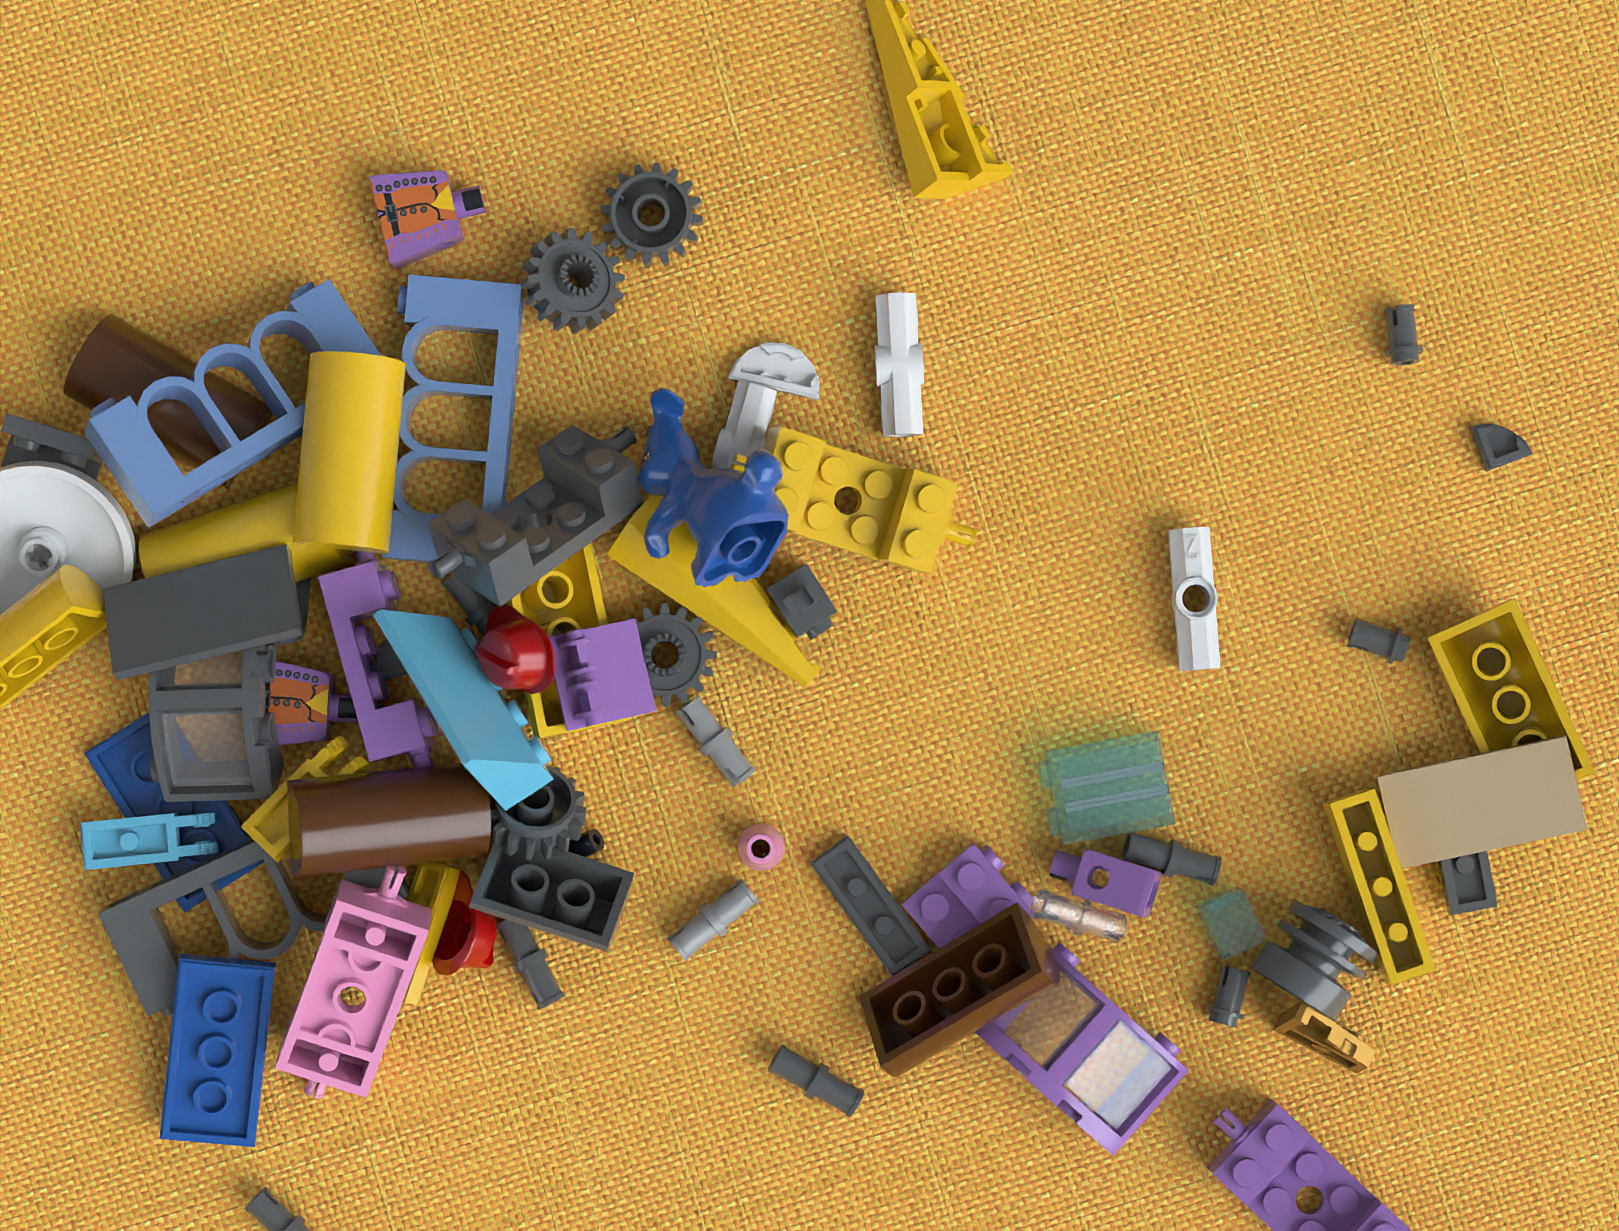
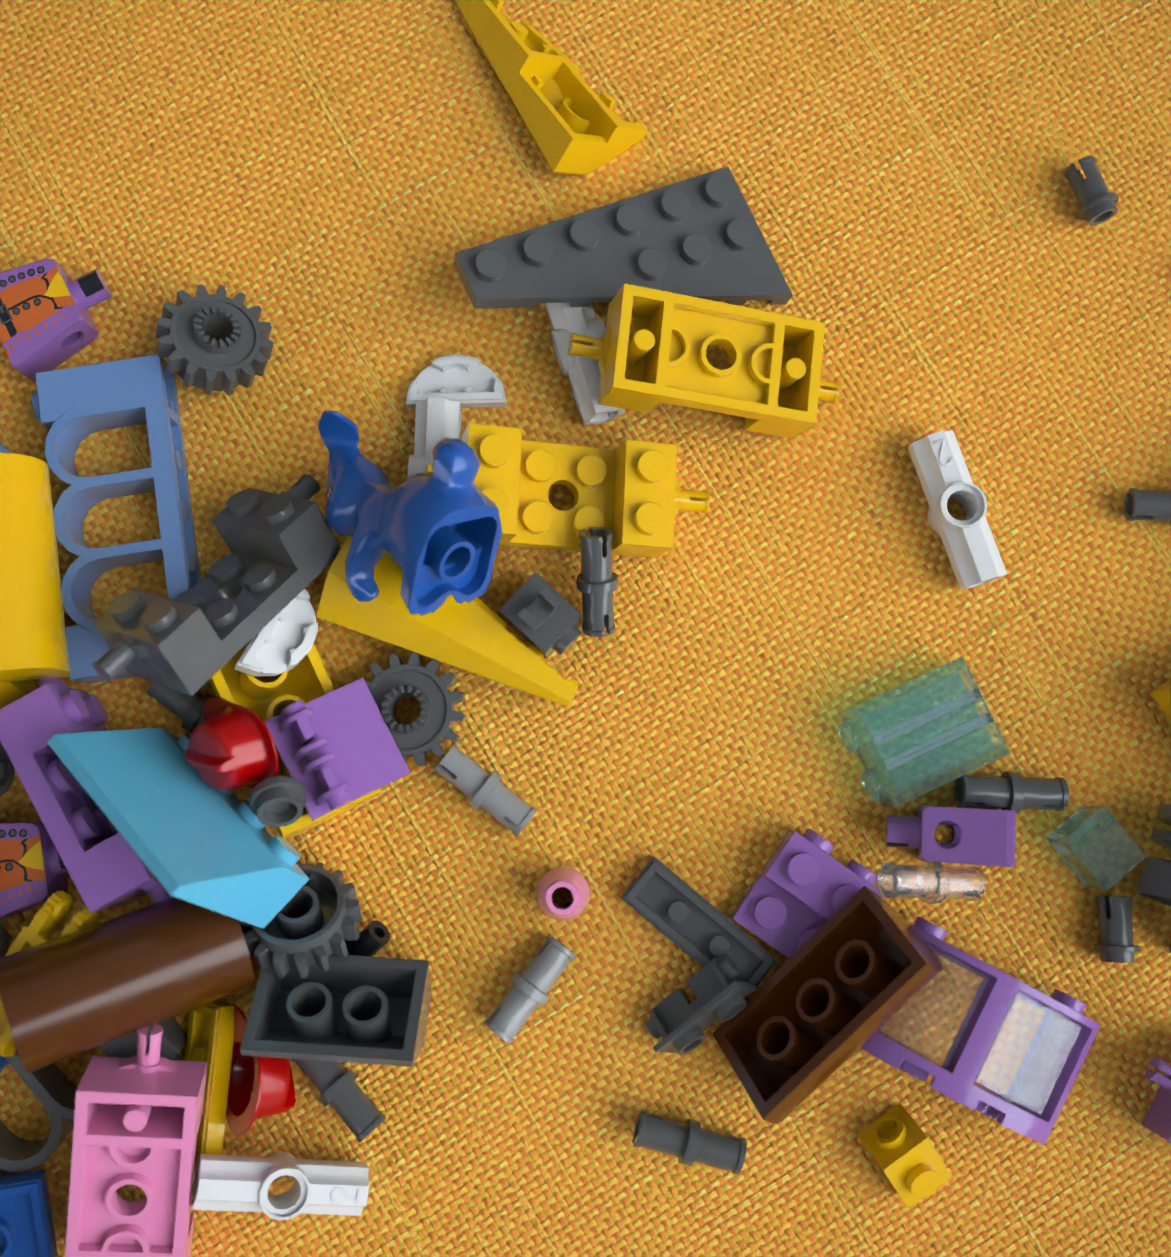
camera: 10 degrees left, 5 degrees down
(494, 1033) = (243, 1184): none -> white piece
(545, 708) = (278, 801): none -> dark grey plate
(576, 573) = (282, 640): none -> white tile
(646, 190) = (279, 231): dark grey gear -> none
(834, 981) = (717, 999): none -> dark grey hinge
(858, 584) = (597, 581): none -> dark grey pin
(961, 400) = (658, 355): none -> yellow brick
(985, 295) = (673, 239): none -> dark grey wing
(995, 1138) = (905, 1155): none -> yellow bracket

